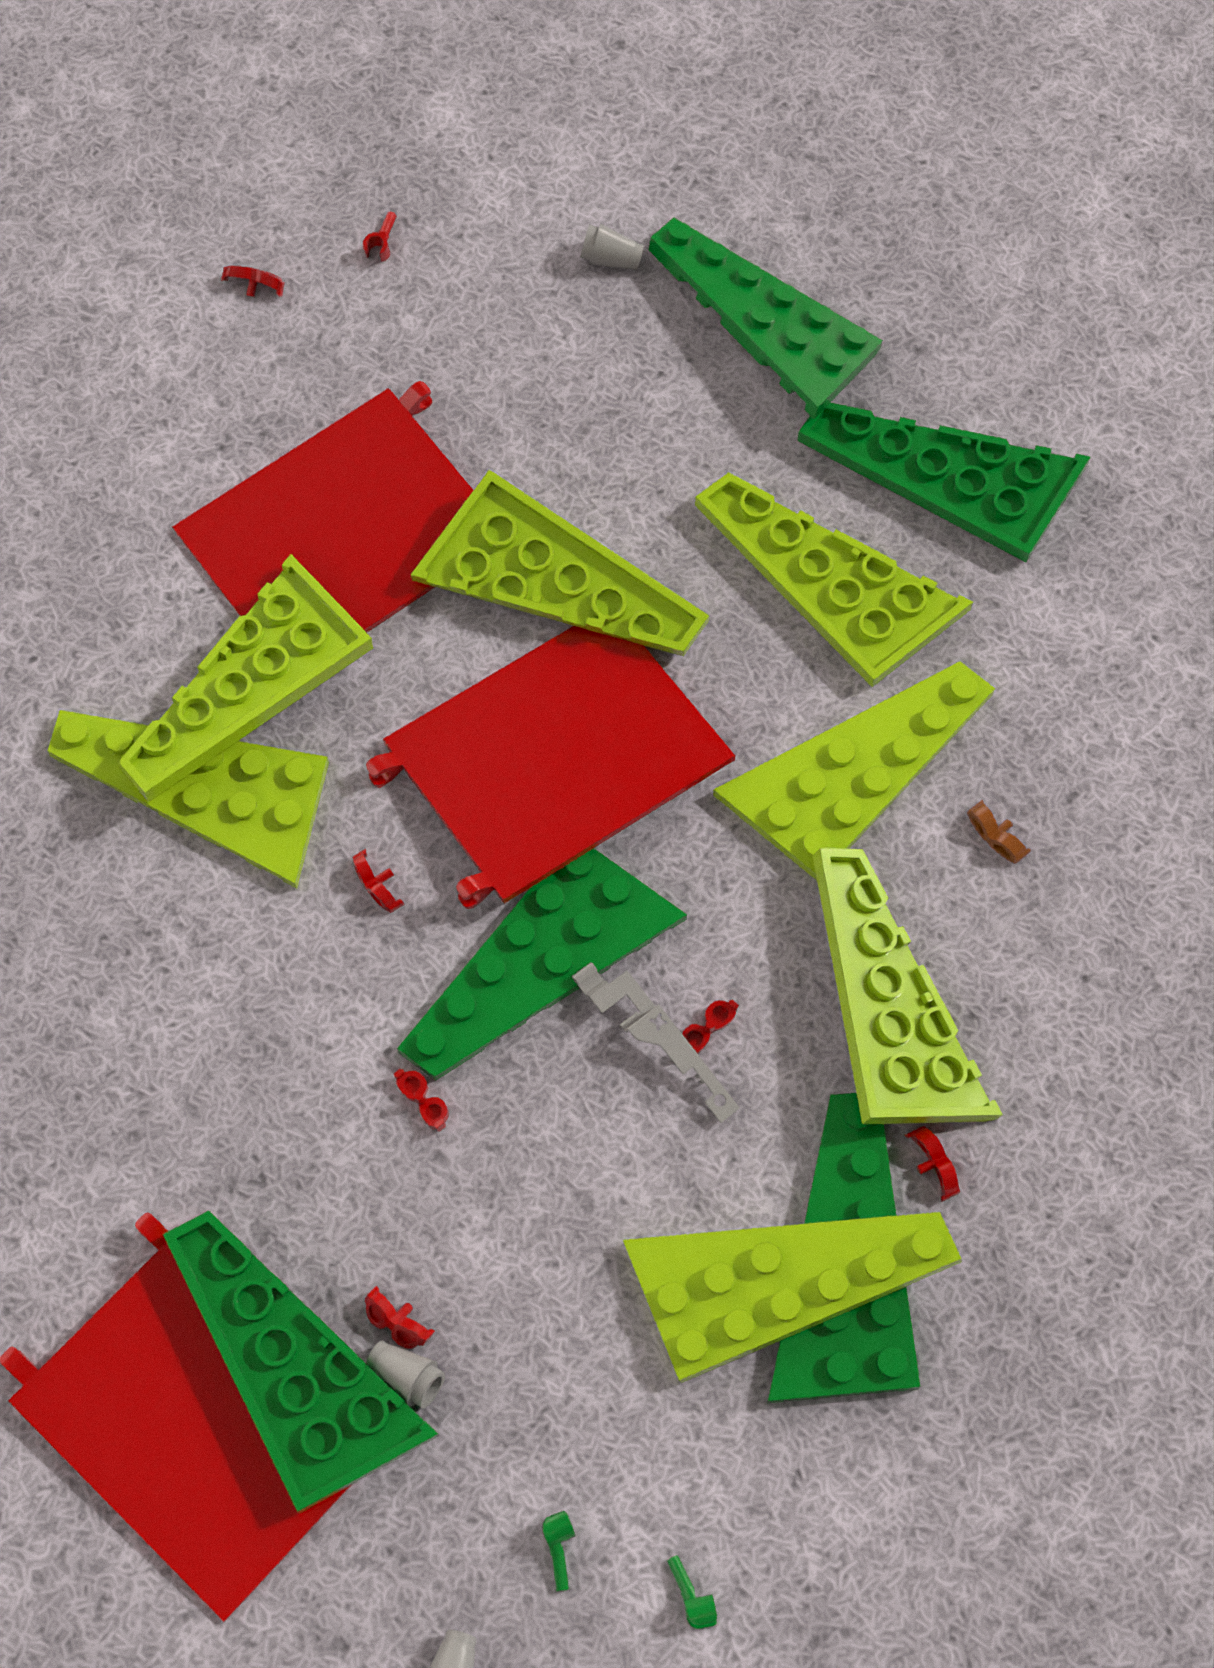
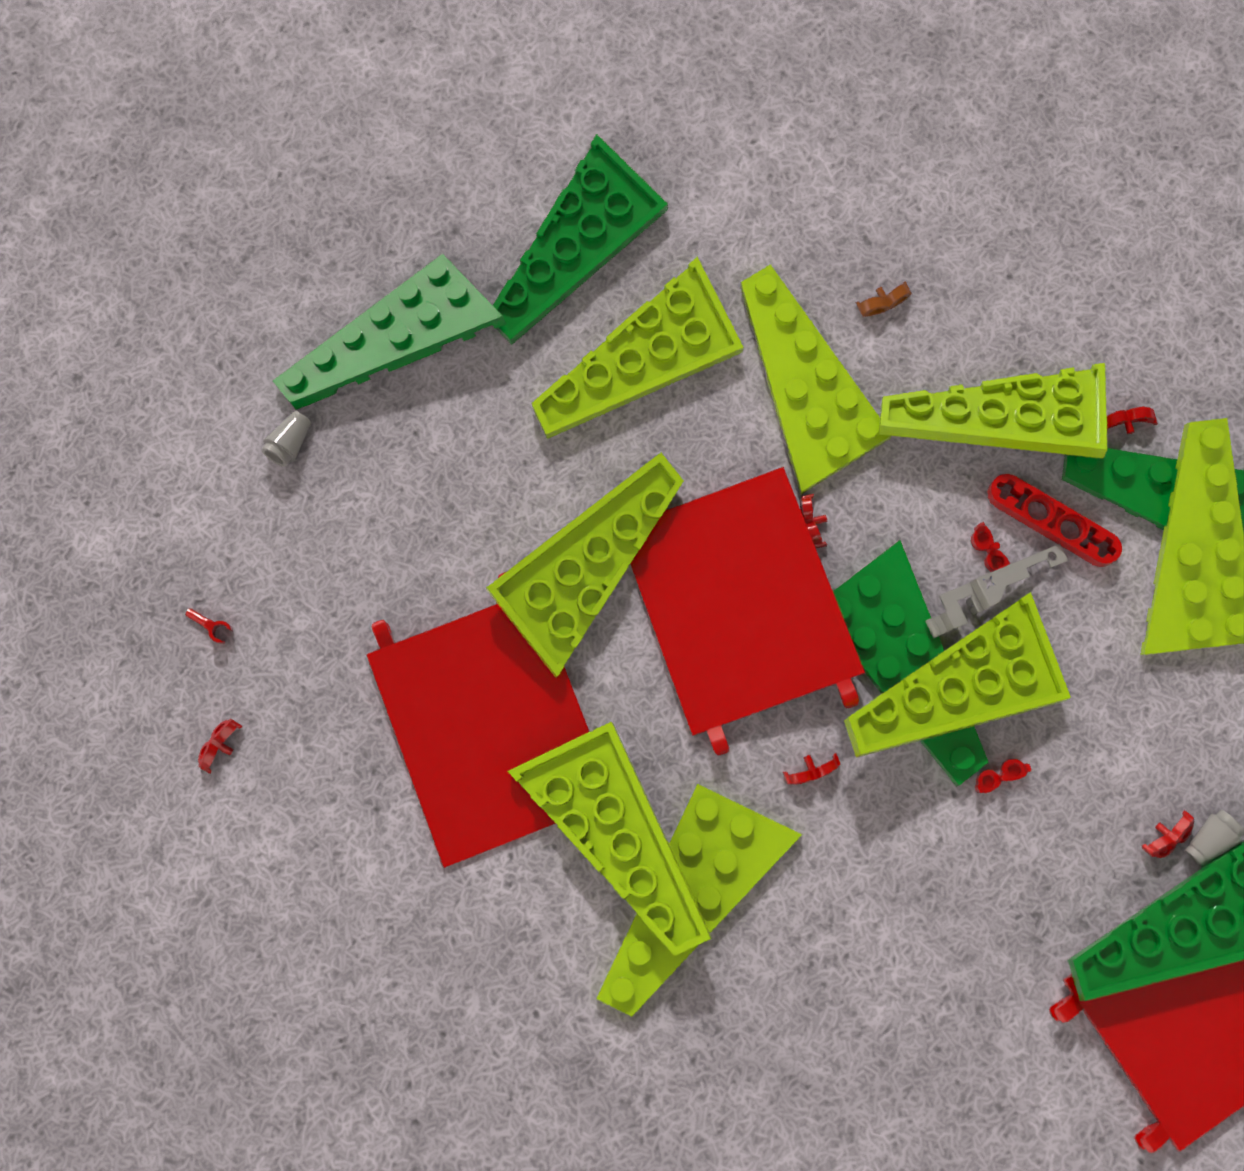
camera: 70 degrees left, 10 degrees up
(531, 1035) = (980, 679): none -> lime wing
(671, 811) = (807, 512): none -> red piece
(768, 1095) = (1055, 516): none -> red beam

